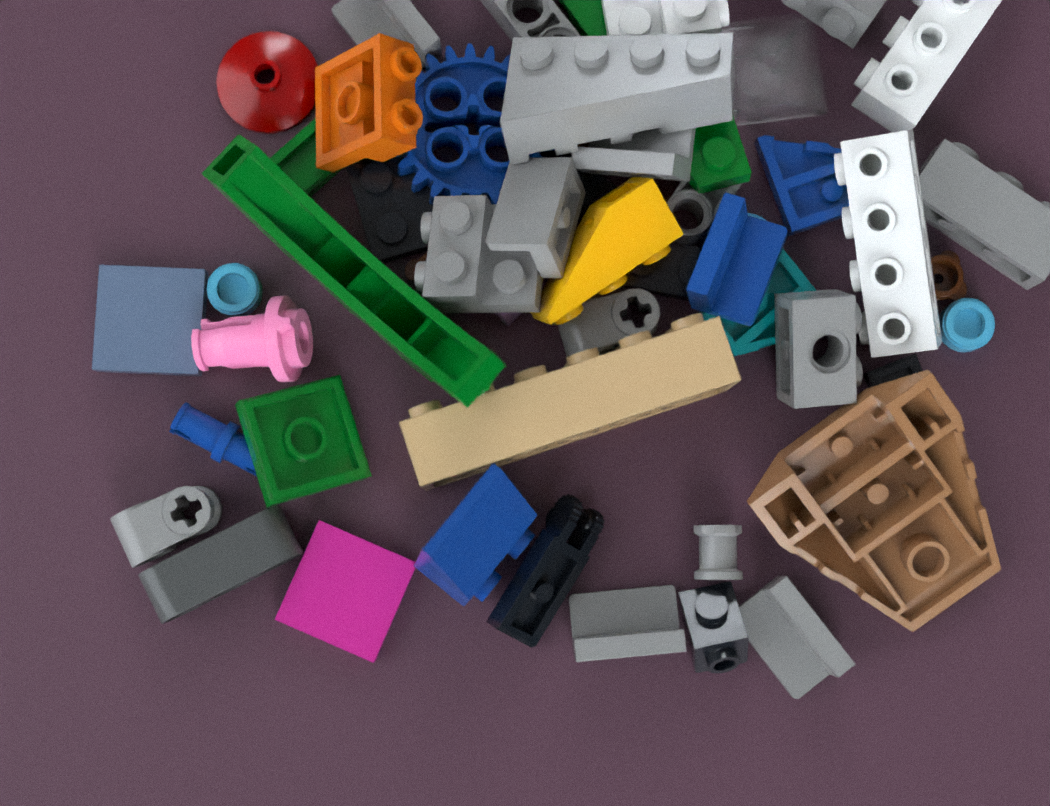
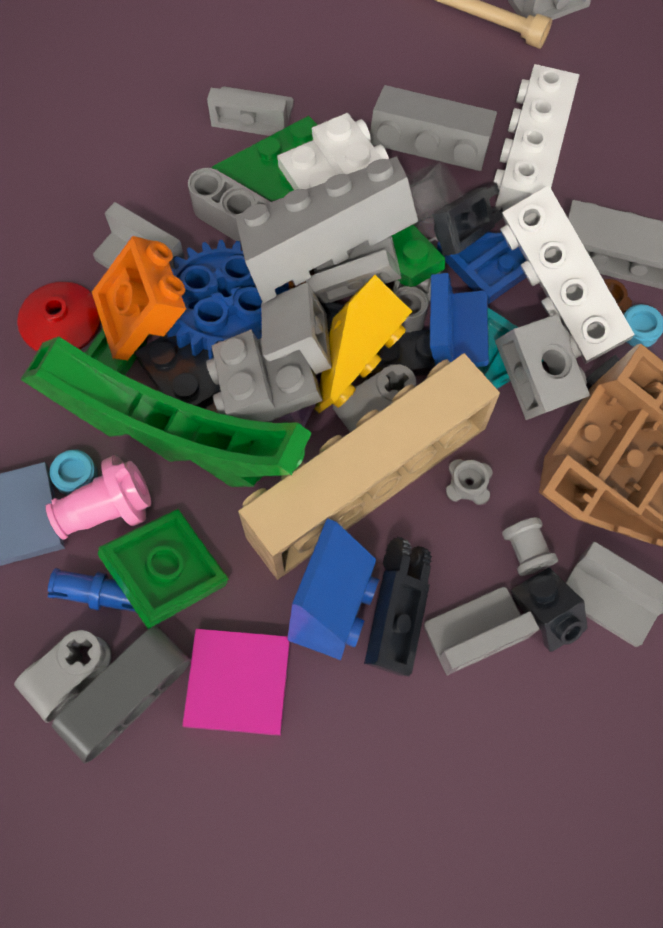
camera: 15 degrees left, 15 degrees down
(695, 447) = (469, 469): none -> light grey plate
(803, 124) = (466, 219): none -> black hinge

